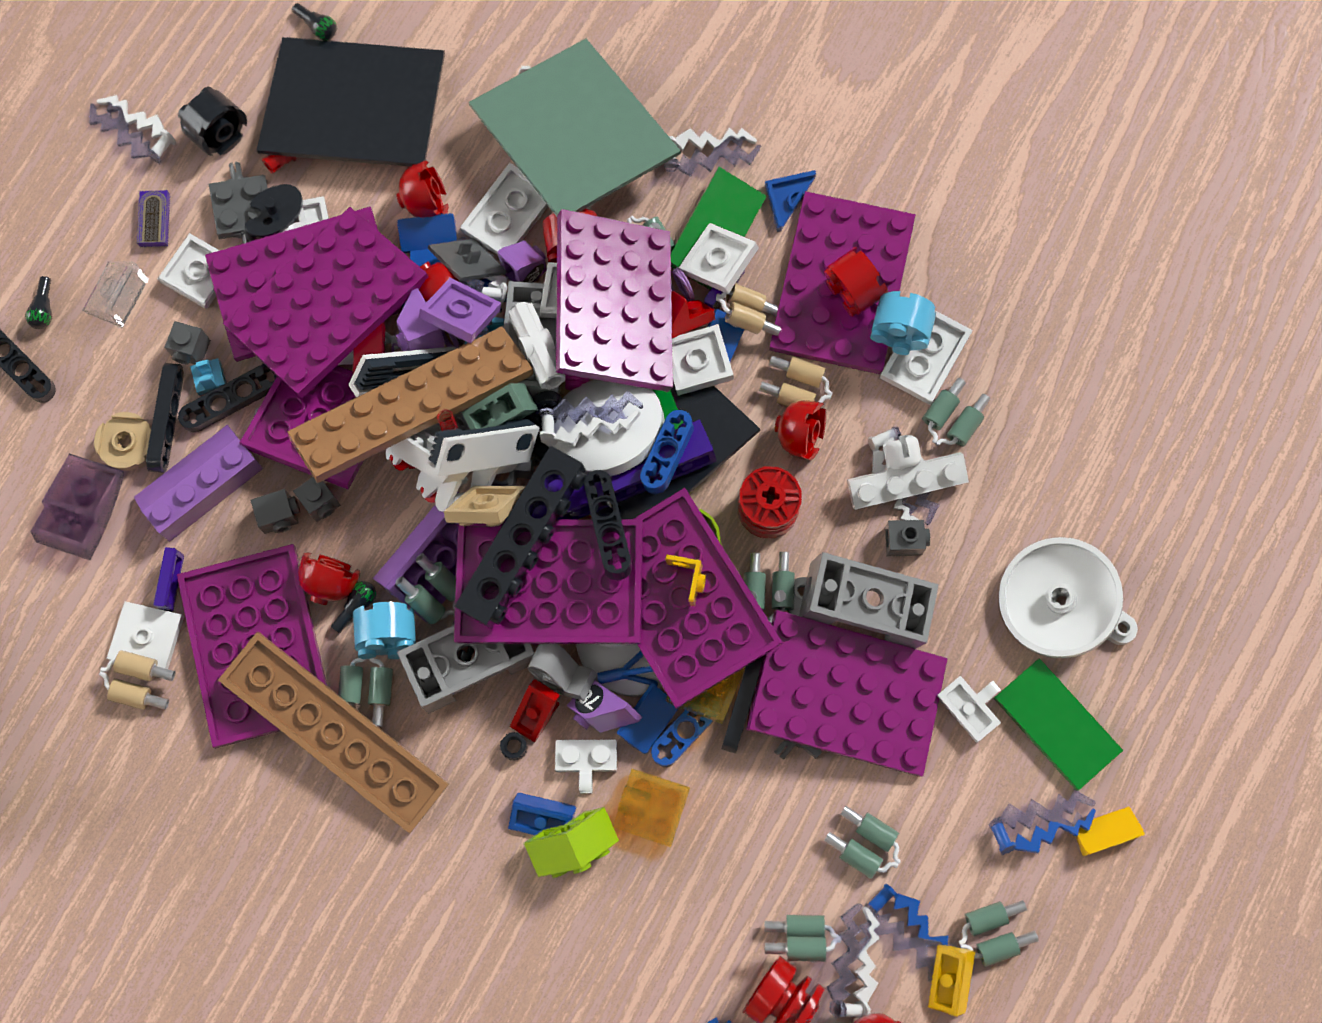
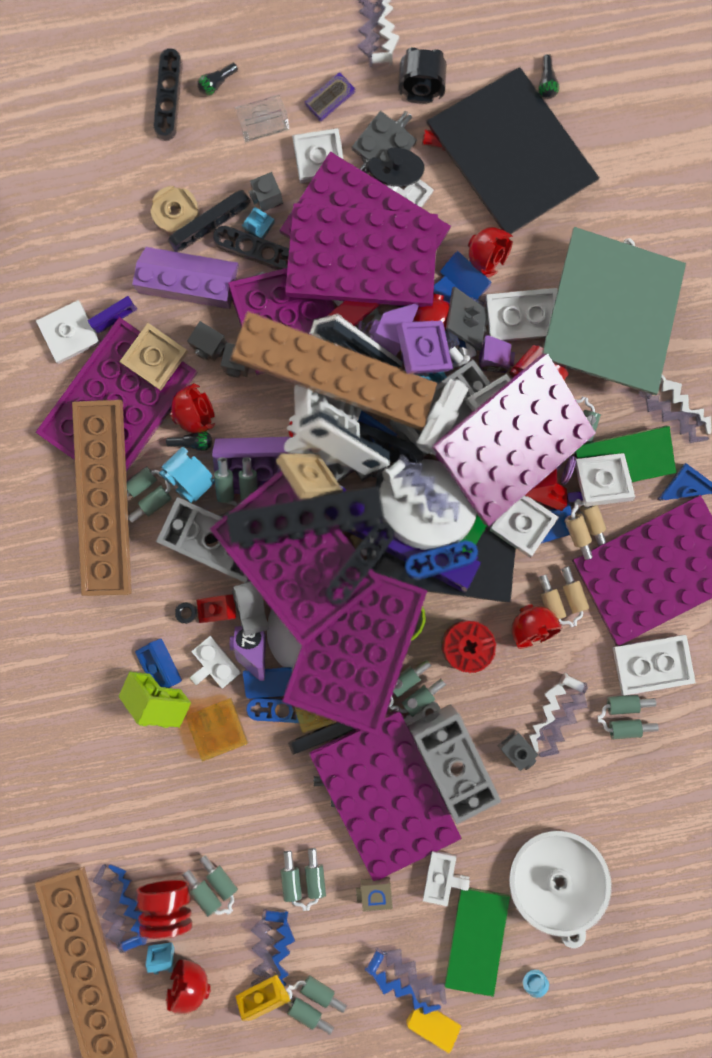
camera: 50 degrees right, 10 degrees up
(78, 506) = (111, 219): clear purple slope -> none
(130, 693) = (27, 354): tan piece -> none
(244, 570) = (154, 356): none -> tan plate
(446, 422) = (334, 408): red piece -> none
(503, 406) = (379, 430): sand green brick -> none
(627, 673) = (283, 645): blue plant -> none
(698, 579) = (368, 654): yellow bracket -> none
(855, 281) = (663, 583): red brick -> none
(855, 951) = (231, 928): clear purple piece -> none
(903, 322) = (661, 637): medium azure brick -> none
(906, 474) = (560, 718): white plate -> none
(935, 783) = (375, 894): none -> dark tan brick
(1141, 699) = (536, 983): none -> medium azure tile

